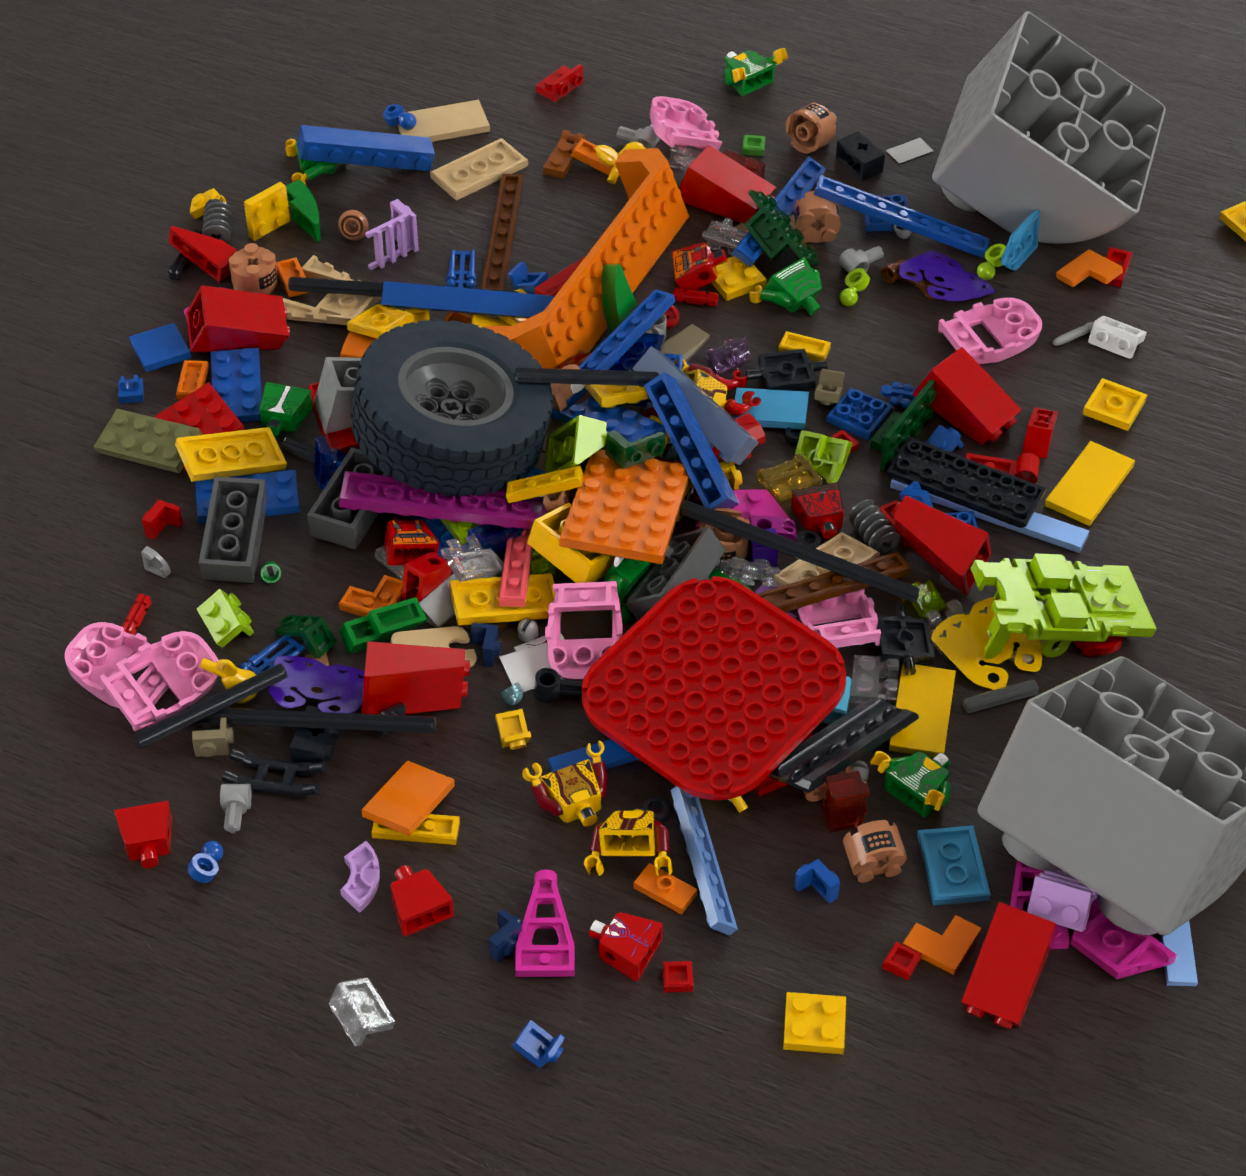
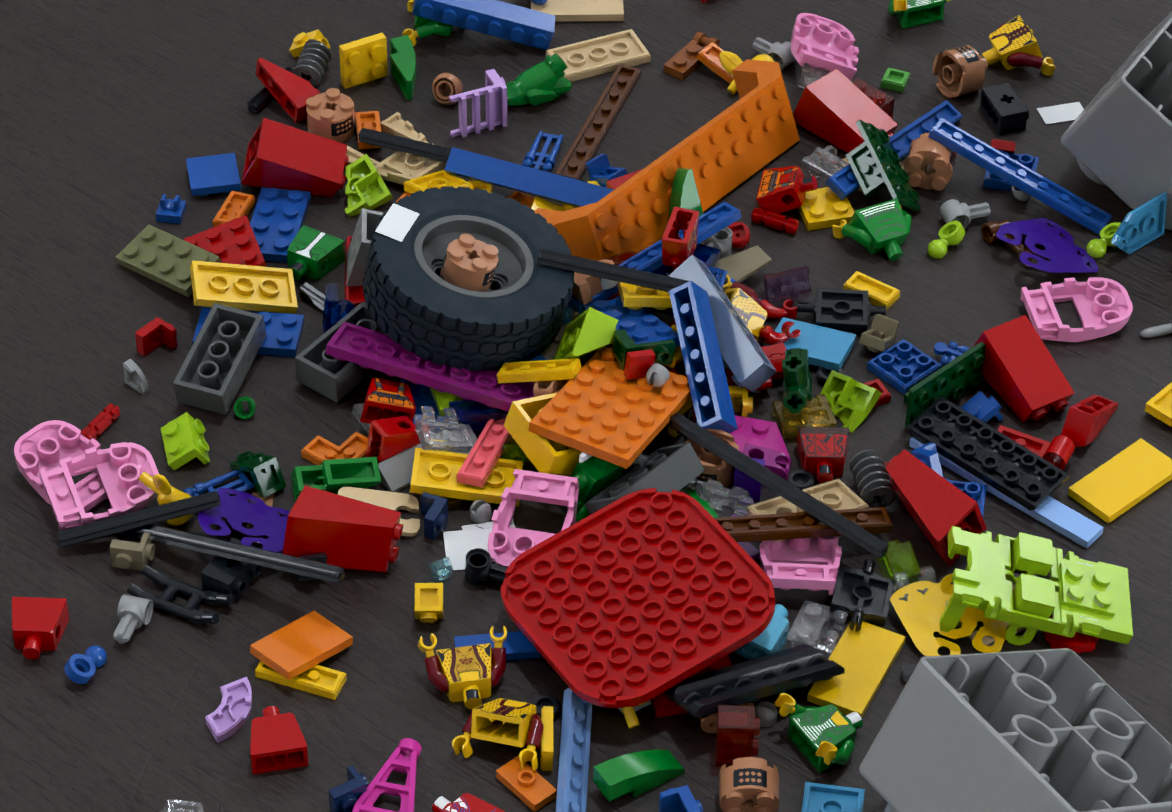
camera: 15 degrees right, 5 degrees down
(309, 334) = (364, 187): none -> lime slope
(377, 367) = (397, 222): none -> white sticker
(439, 203) = (539, 83): none -> green animal
(454, 394) = (470, 263): none -> nougat brick
(633, 343) = (677, 249): none -> red torso
(639, 461) = (638, 363): none -> red tile
(658, 467) = (657, 375): none -> light grey hinge
(676, 850) = (547, 739): none -> yellow tile
(763, 856) = (636, 773): none -> green slope
(777, 447) = (797, 379): none -> dark green piece
(853, 96) = (1017, 47): none -> torso
(875, 190) = (1007, 146): none -> red tile

